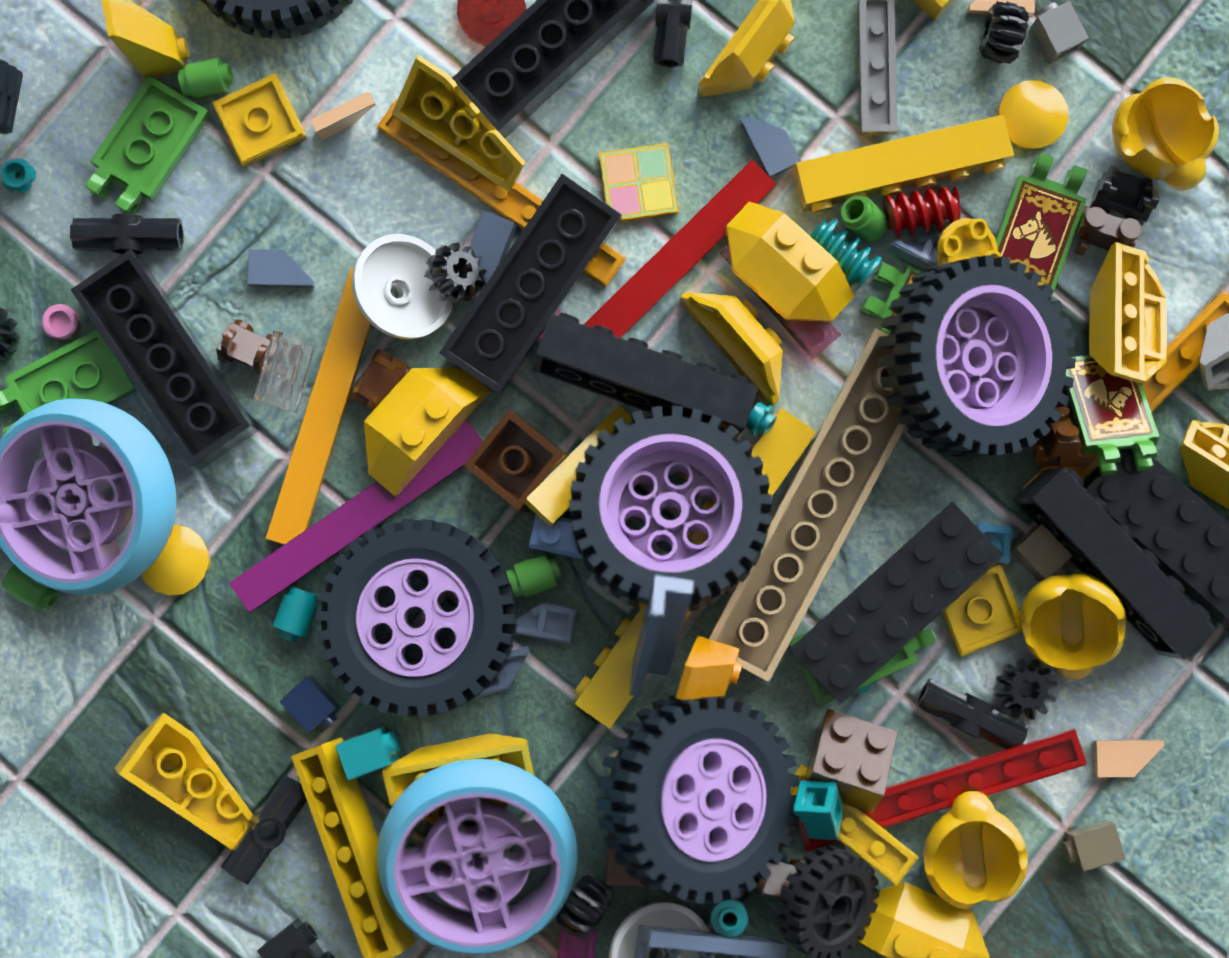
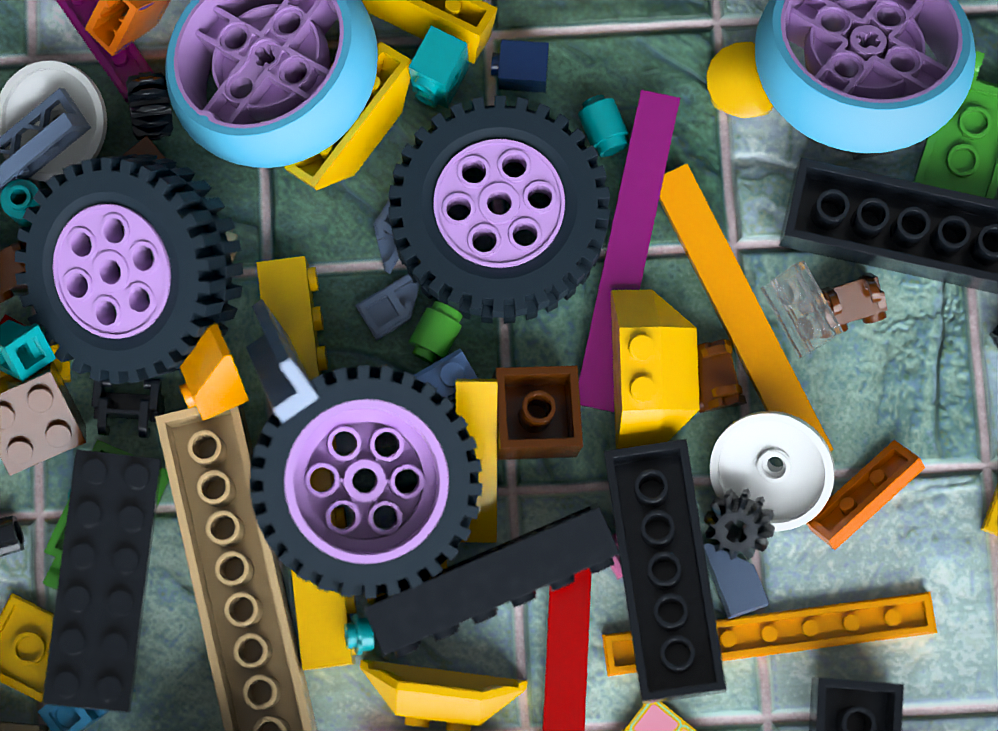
camera: 140 degrees right, 5 degrees down
(275, 269) = (895, 390): sand blue tile -> none
(342, 116) = (966, 572): light nougat tile -> none
(356, 220) = (865, 494): none -> orange plate
(447, 117) = (874, 651): yellow wedge -> none
(778, 711) = (127, 406): none -> black piece

